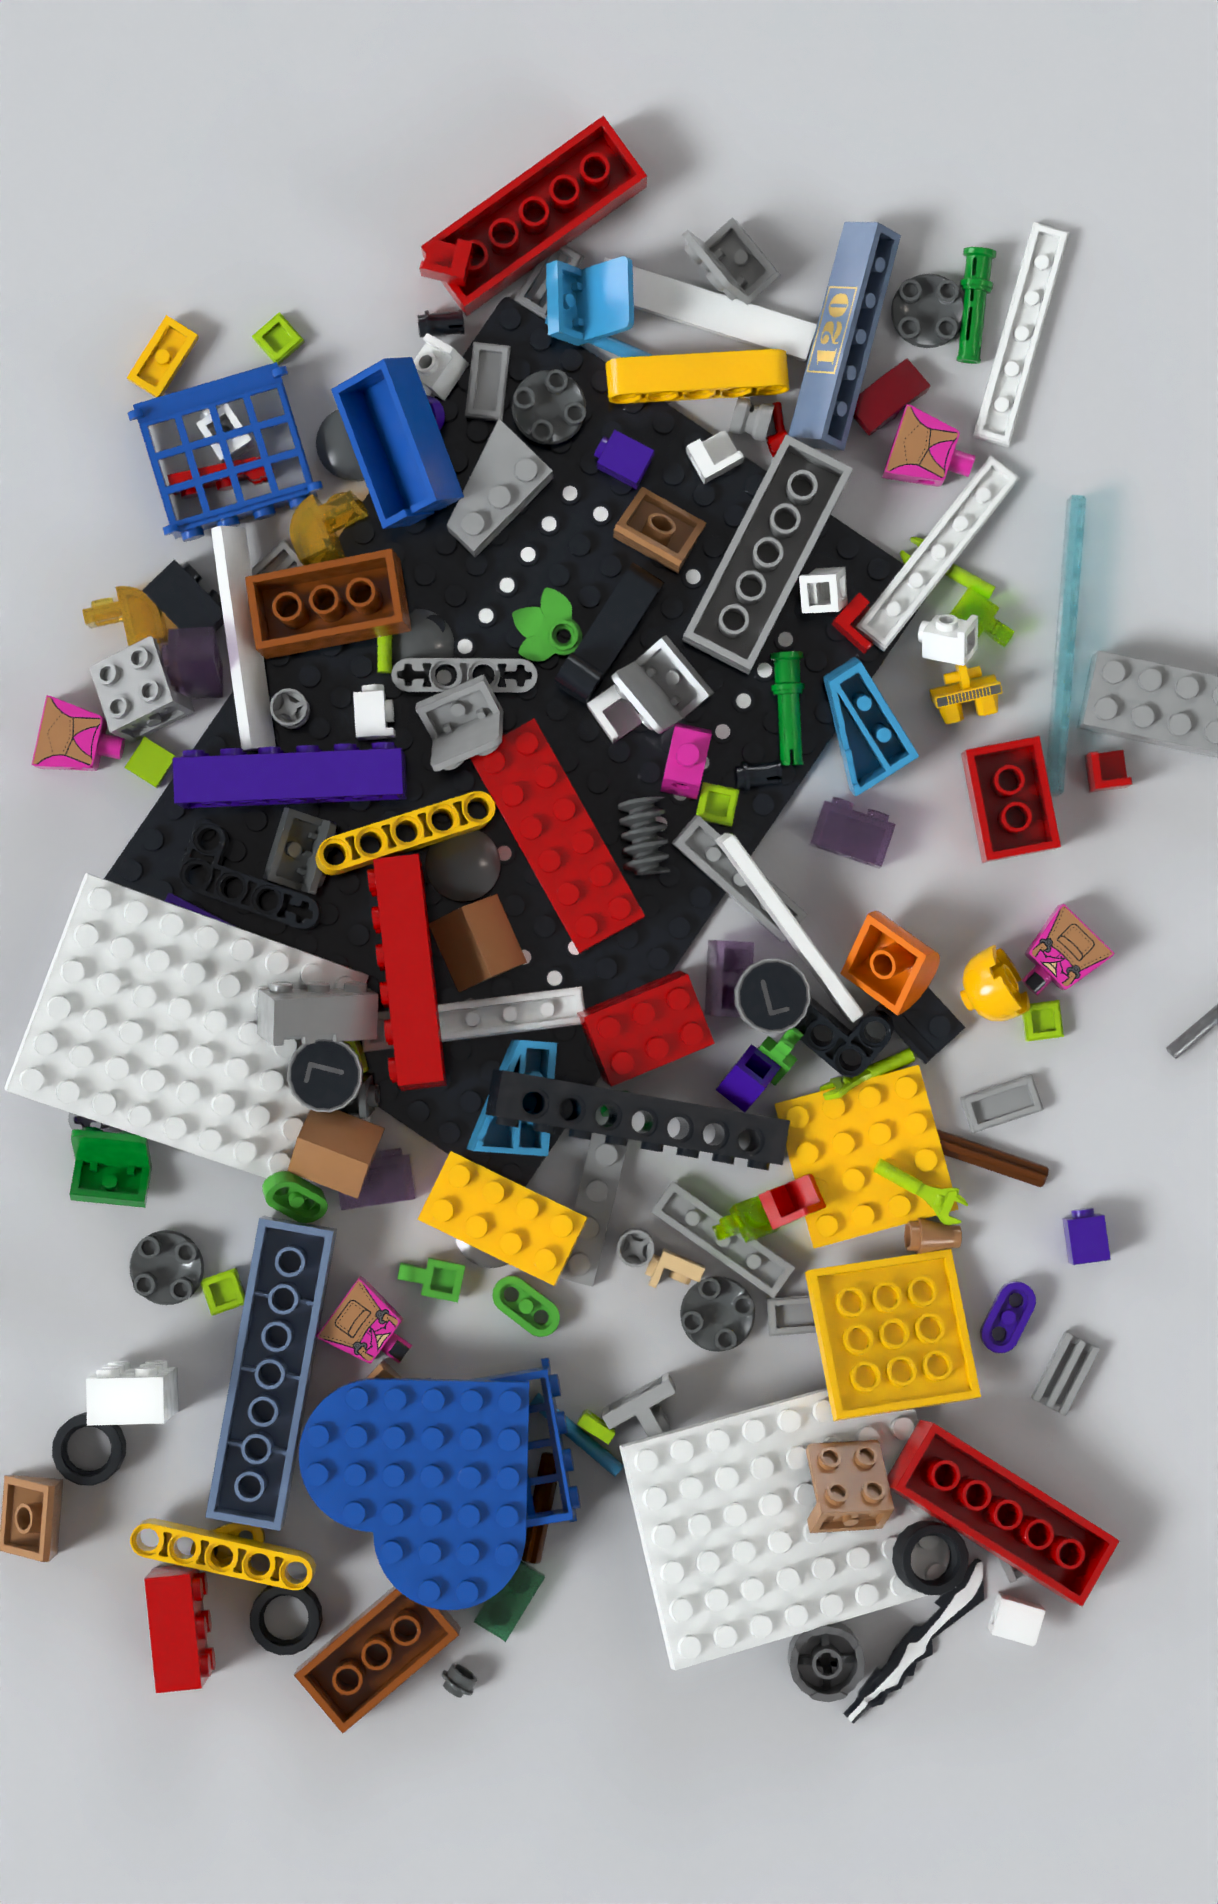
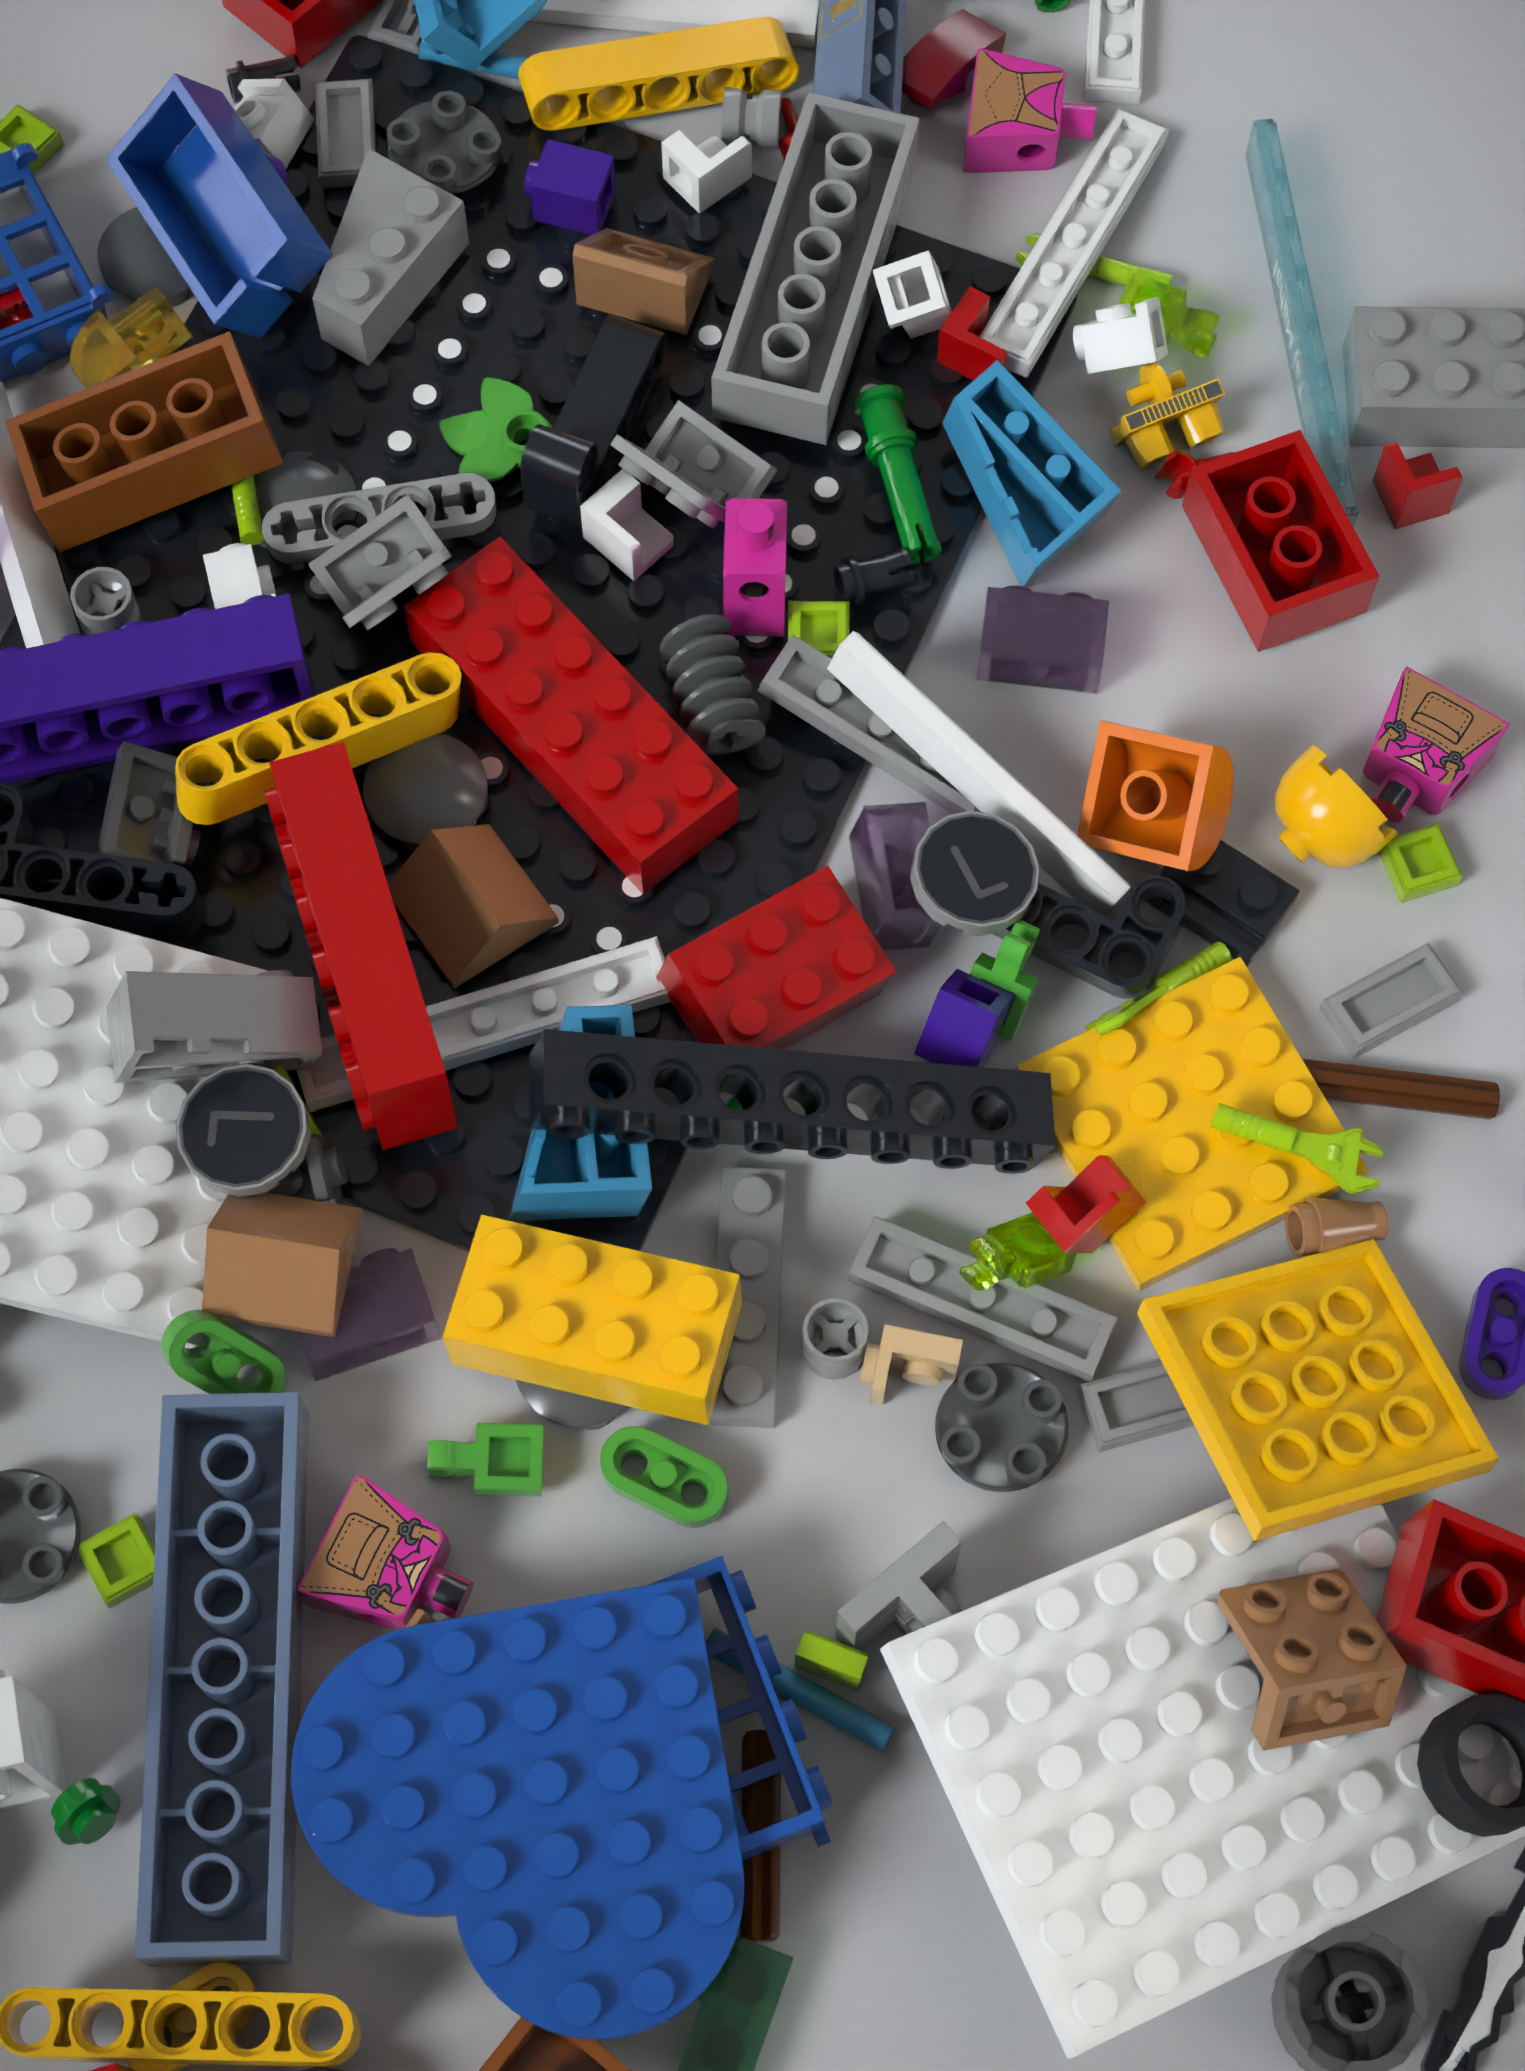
camera: 10 degrees left, 20 degrees down
(187, 1427) = (85, 1812): none -> green plate
(970, 731) = (1178, 468): none -> red hand

